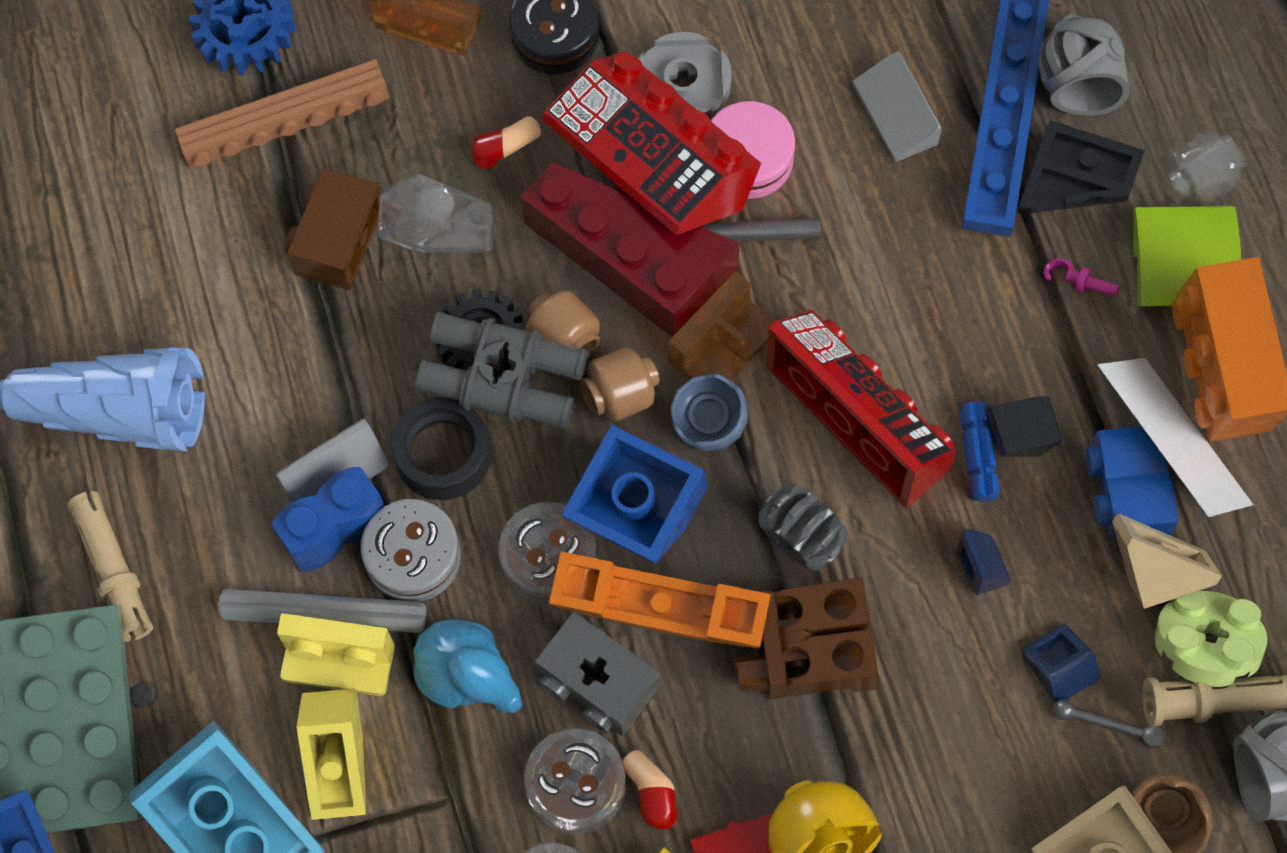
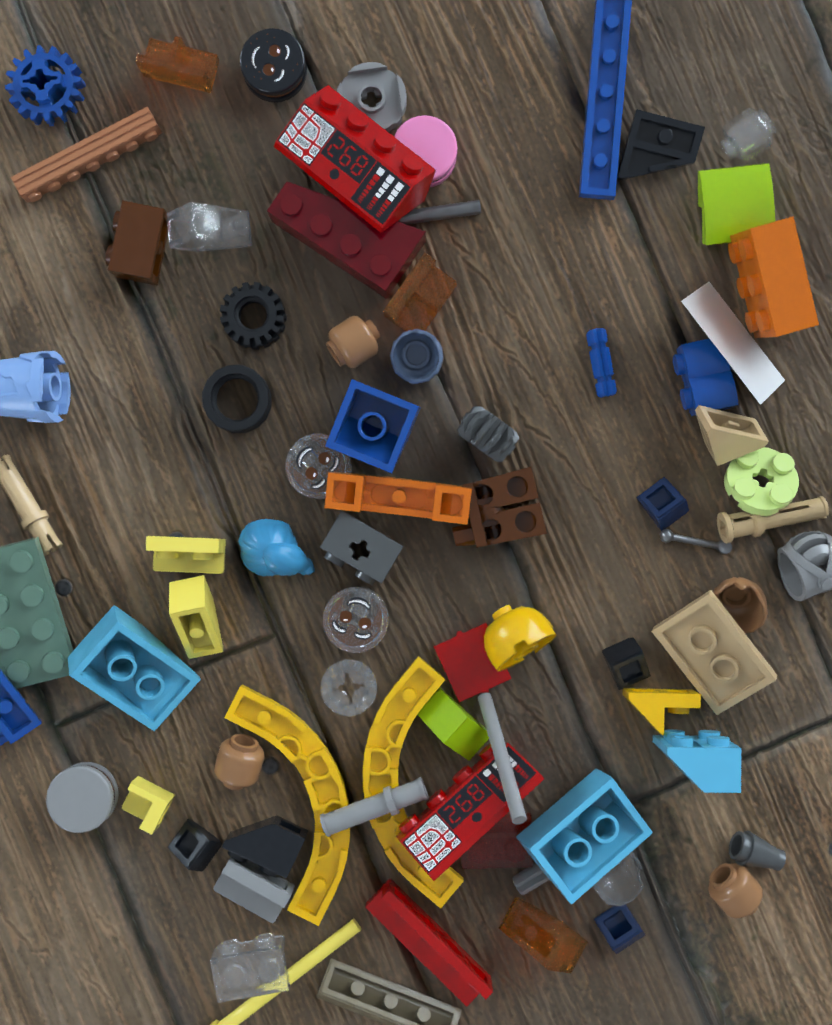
camera: 10 degrees left, 20 degrees up
(268, 606) = (173, 520): light grey axle -> none
(321, 524) = (162, 466): blue brick -> none
(348, 449) = (165, 422): light grey slope -> none
(411, 550) = (226, 474): light grey head -> none
(500, 143) = (248, 163): arm -> none
(512, 393) = (260, 327): dark grey pin -> none
(564, 320) = (308, 304): medium nougat head -> none
(654, 791) = (407, 618): arm -> none
(858, 405) = (517, 340): red slope -> none
(898, 108) = (527, 107): light grey slope -> none
(982, 562) = (608, 441): dark blue slope -> none
(1025, 427) = (631, 343): black slope -> none
(1083, 279) = (663, 228): dark pink hand -> none
(1084, 66) = (659, 62): light grey helmet -> none

